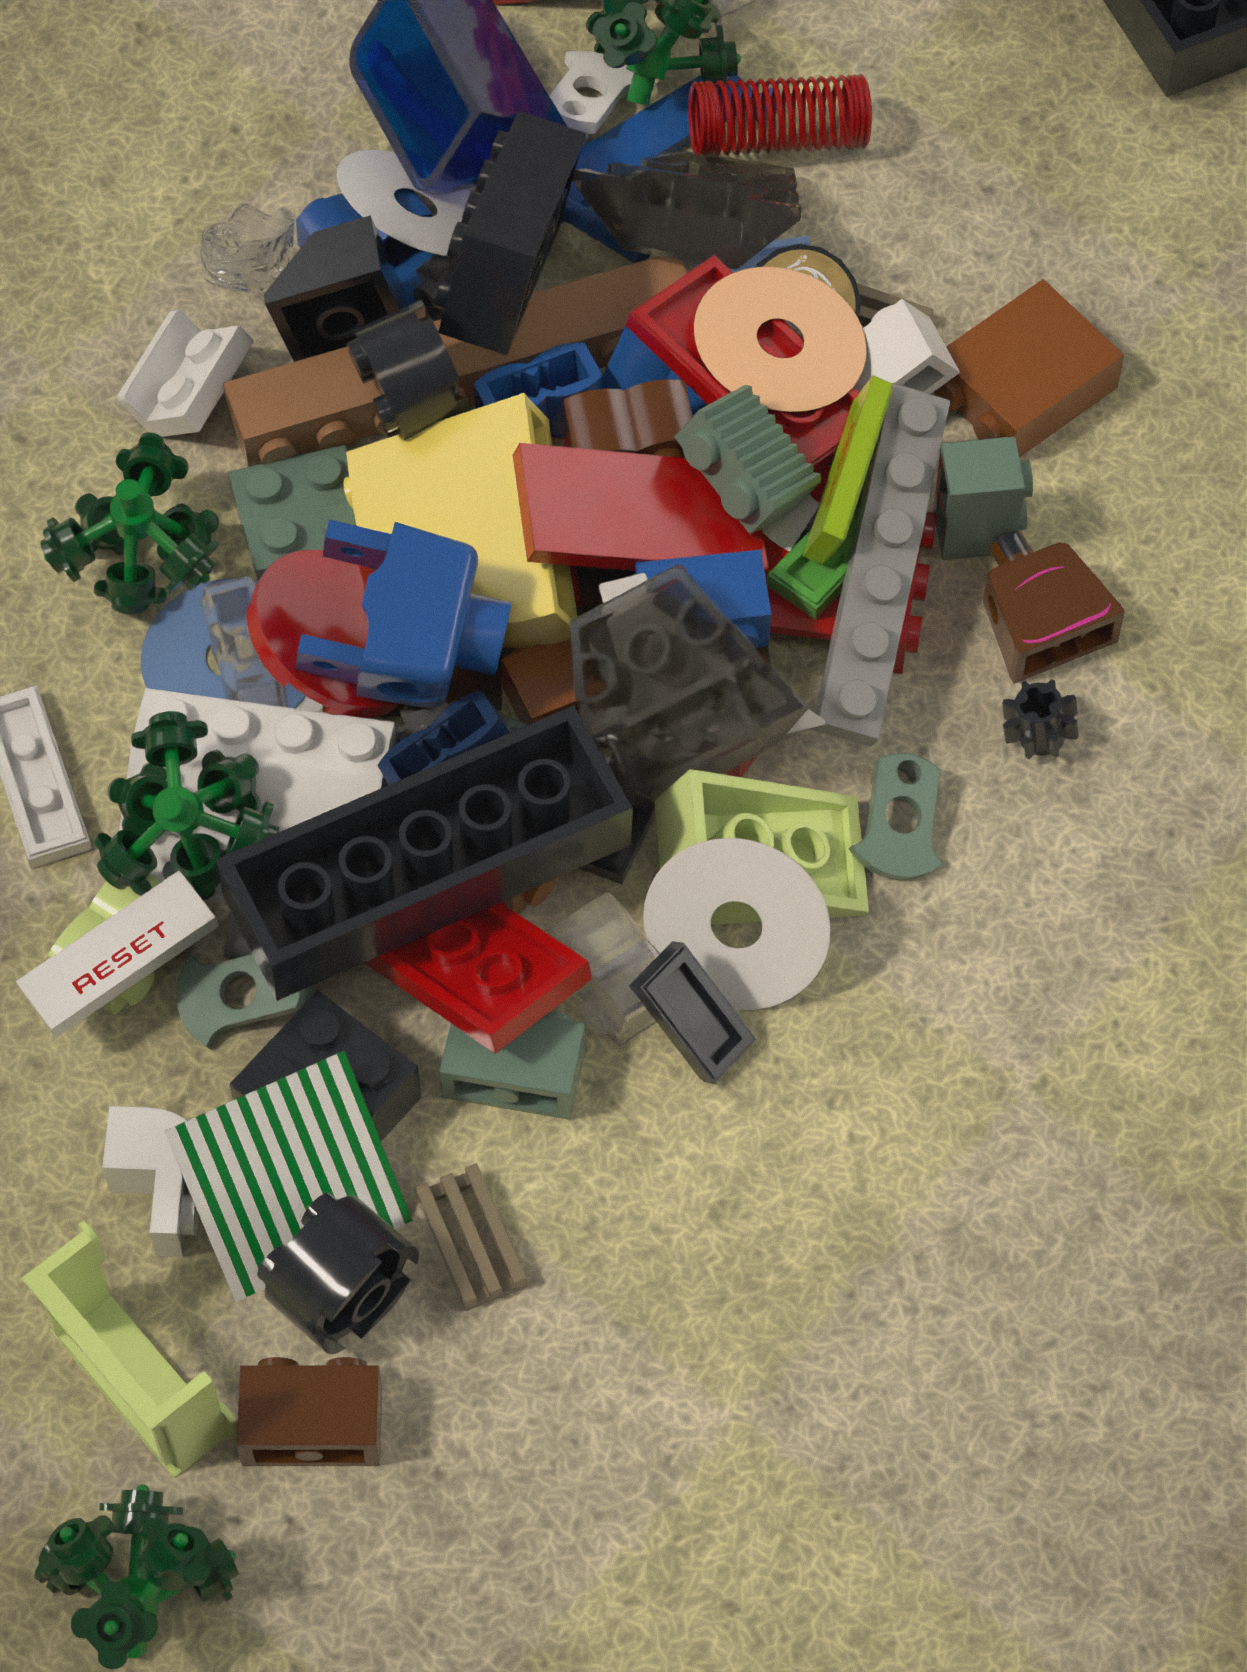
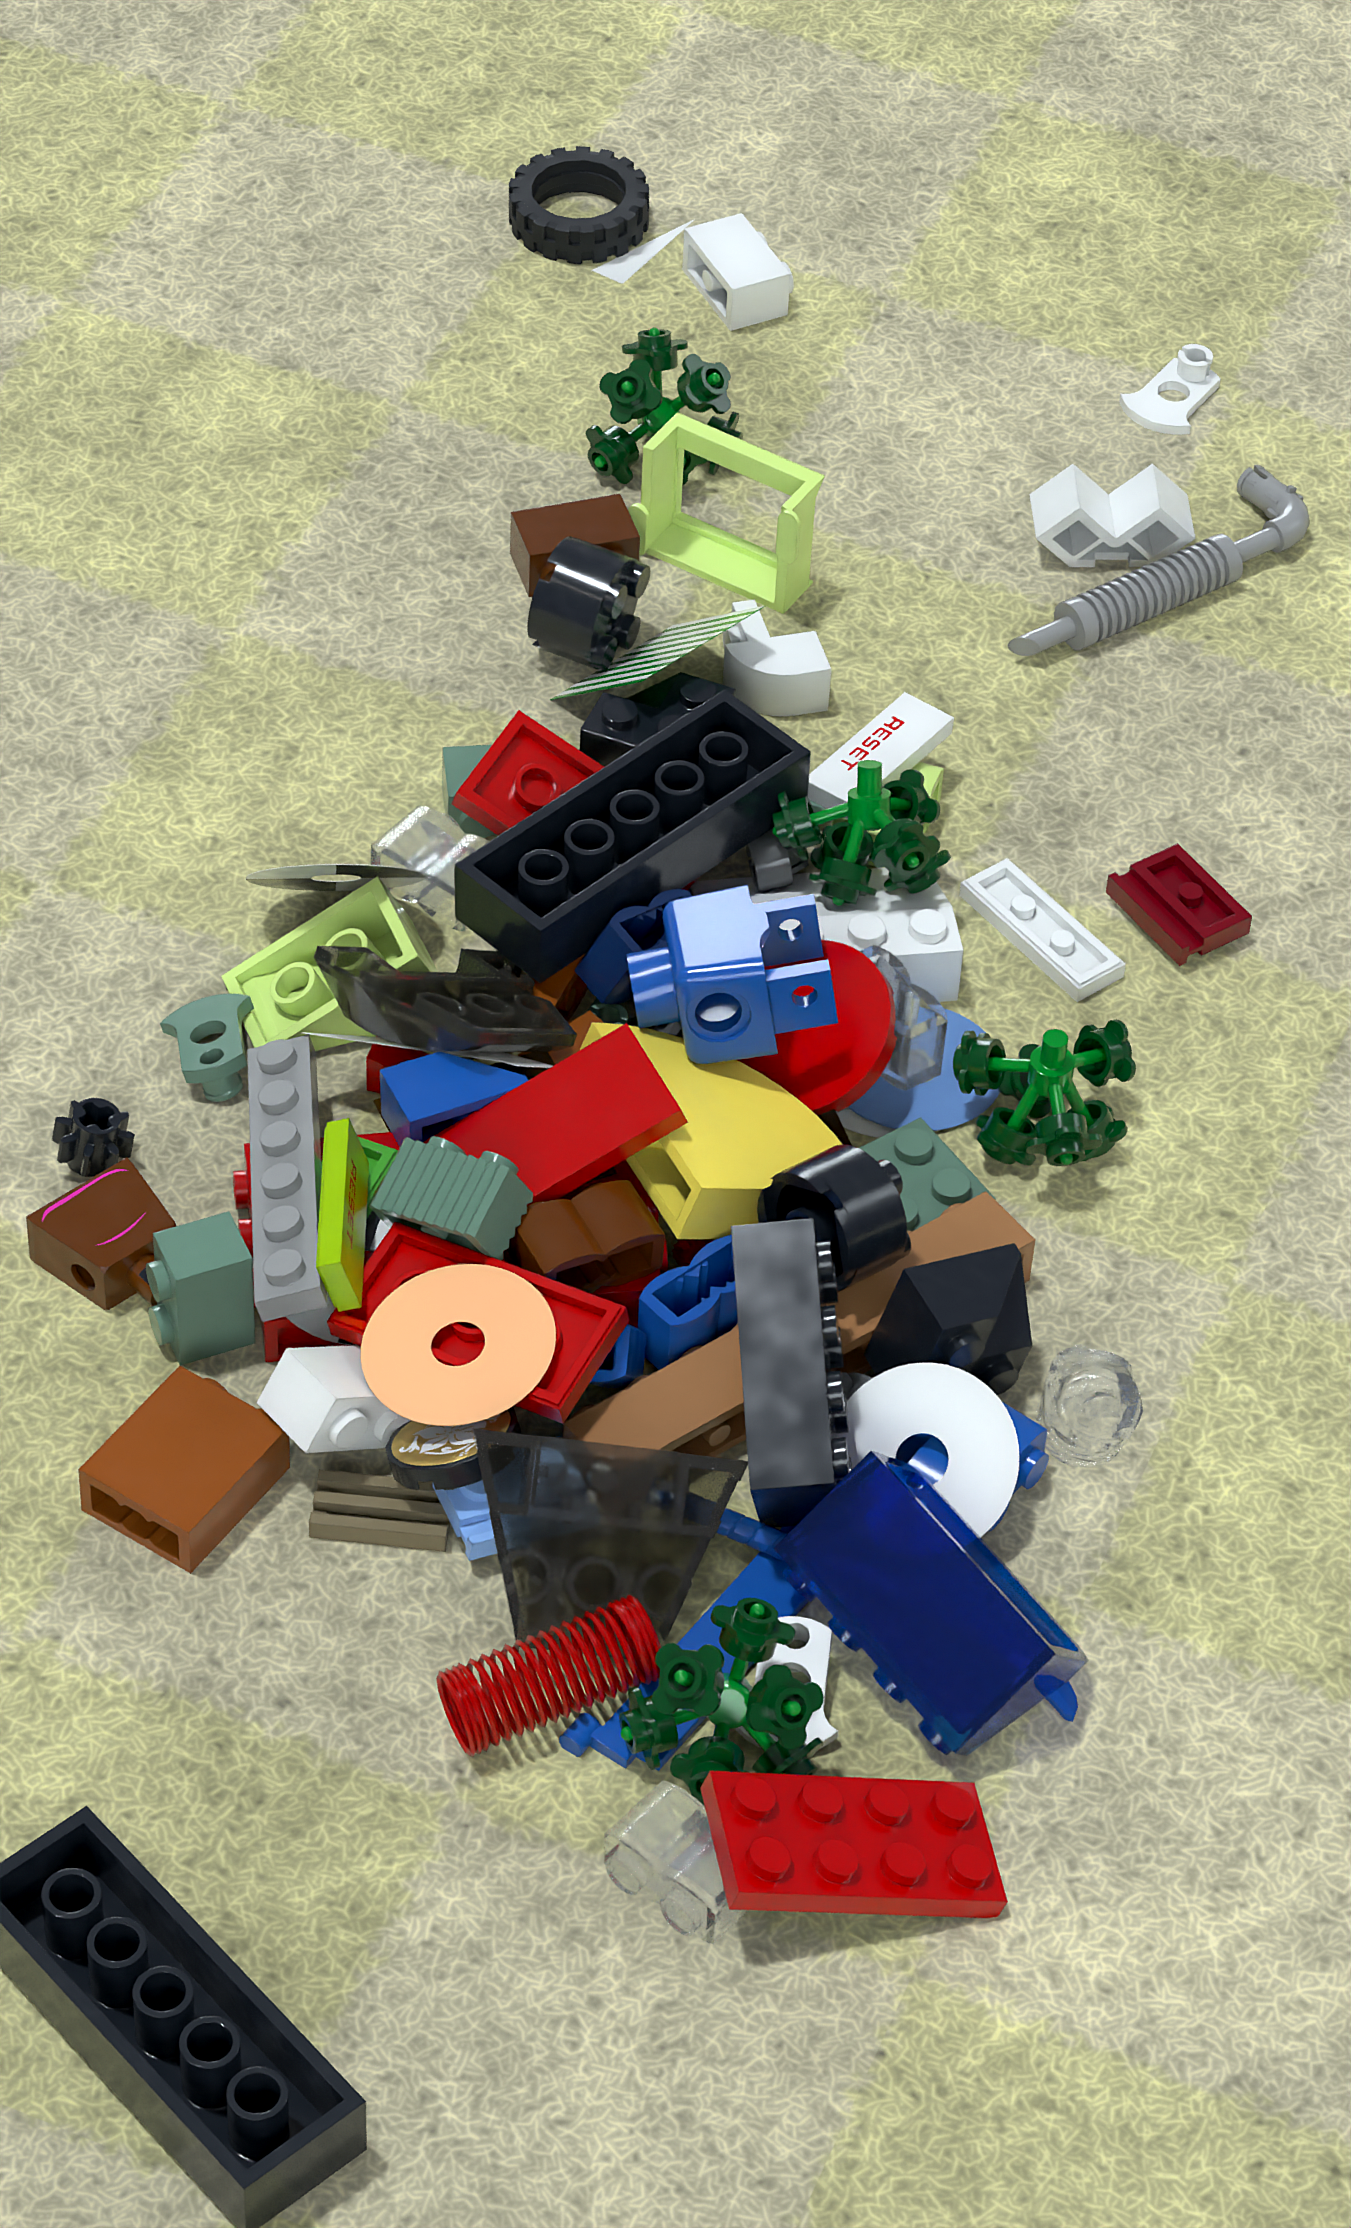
camera: 160 degrees right, 15 degrees down
(182, 375) = (1083, 1271): white bracket -> none
(451, 1188) = (501, 681): dark tan tile -> none
(692, 1012) = (357, 831): black tile -> none

